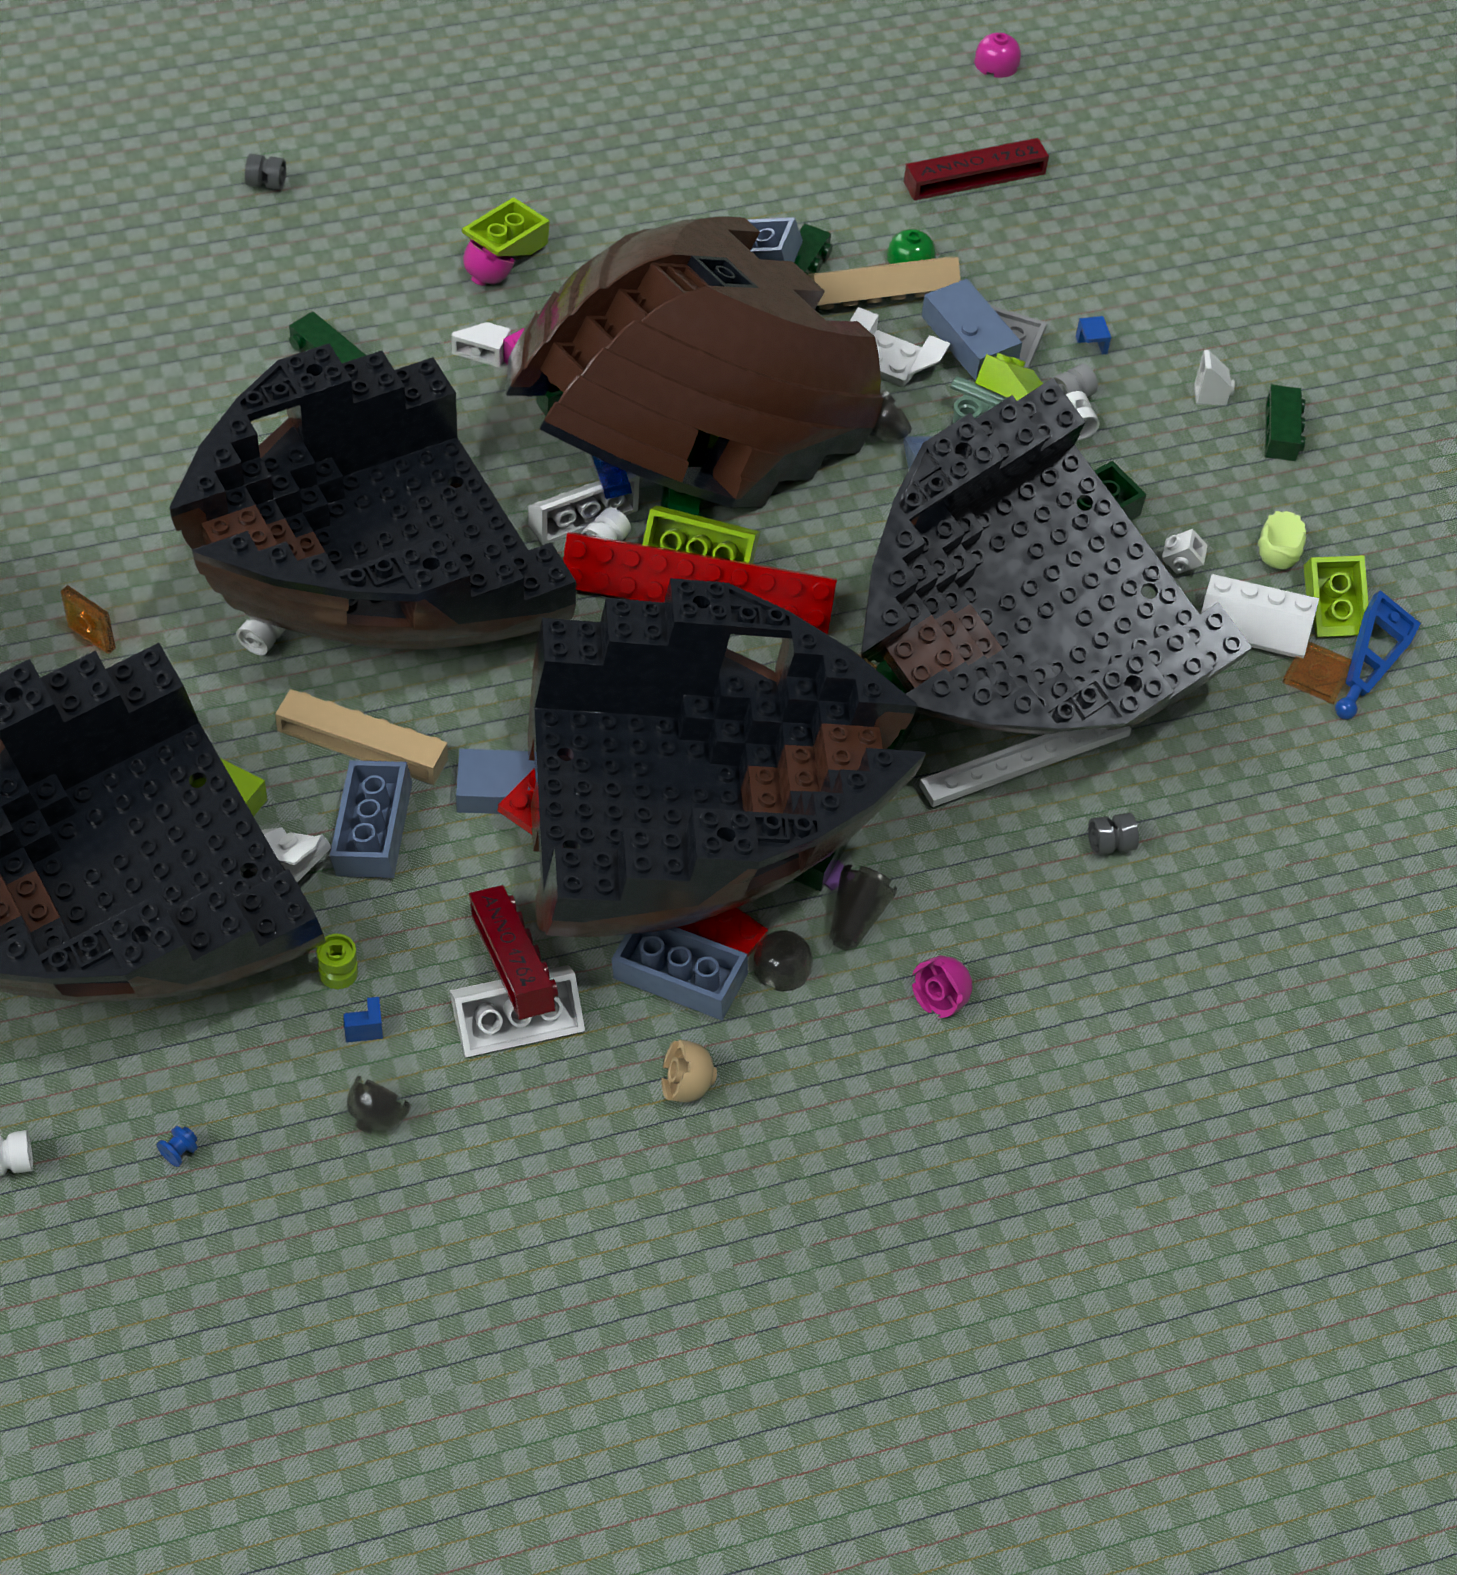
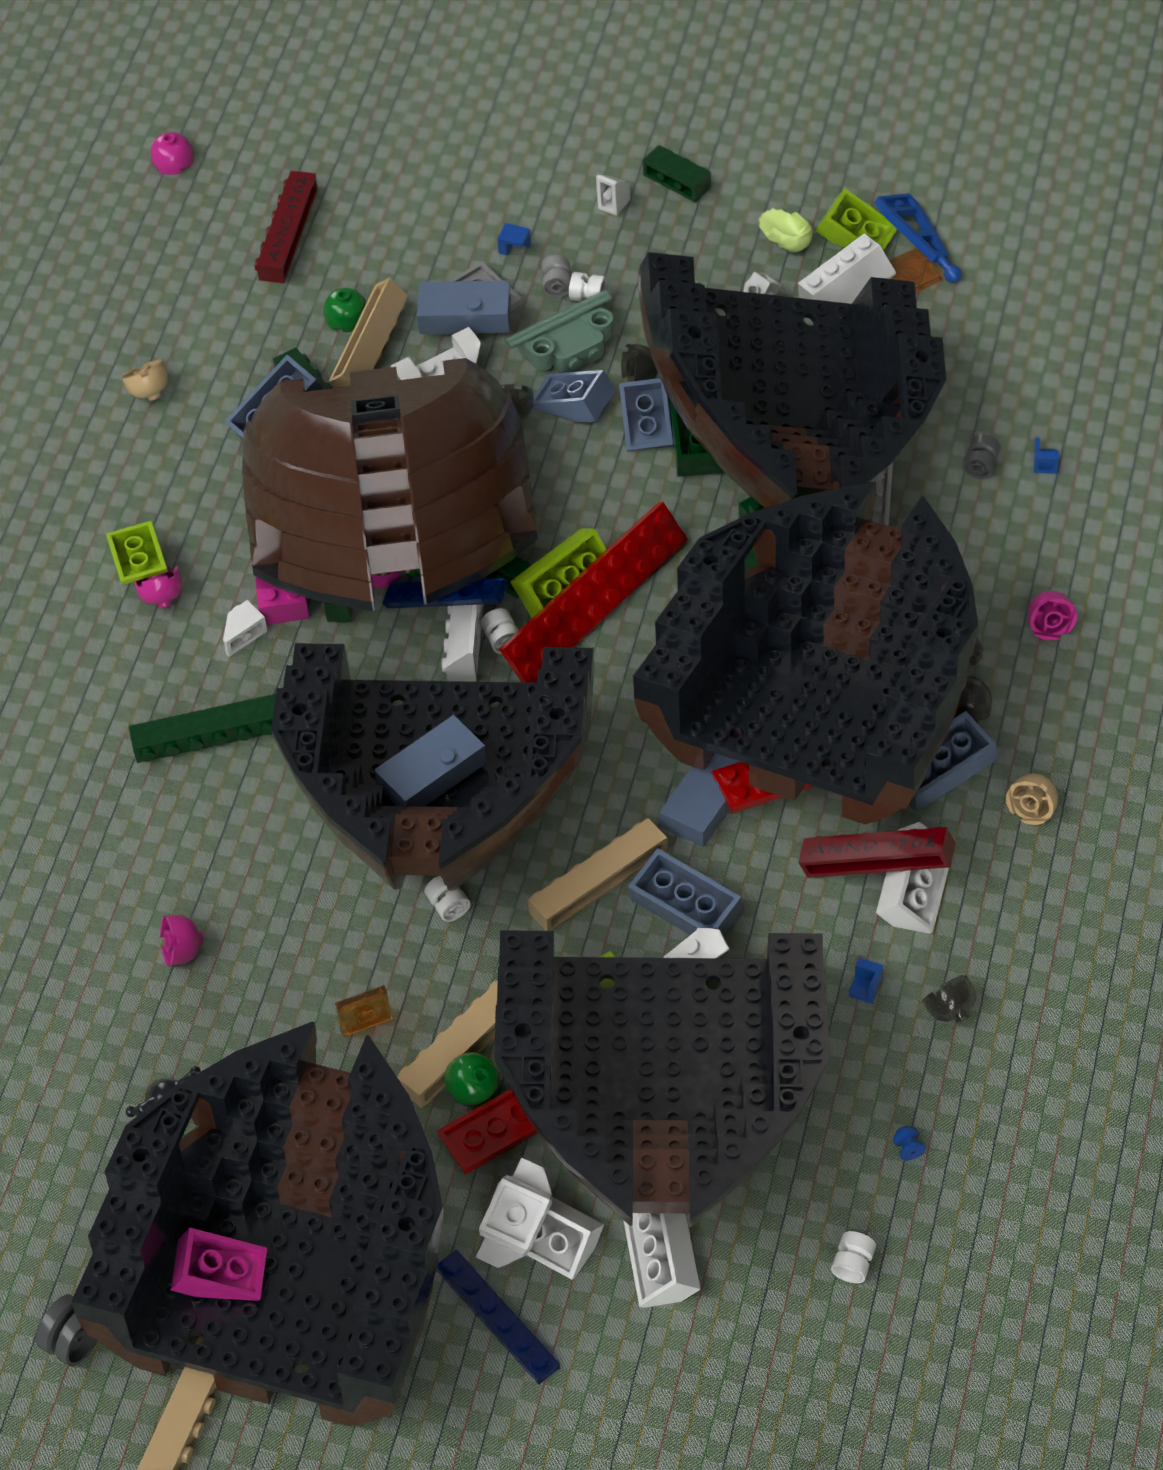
camera: 50 degrees left, 0 degrees up
(99, 453) = (180, 939): none -> dark pink cylinder
(370, 527) = (431, 764): none -> sand blue brick
(715, 152) = (146, 380): none -> tan cylinder
(1007, 376) = (538, 306): lime slope -> none
(1157, 894) = (1045, 459): none -> blue panel

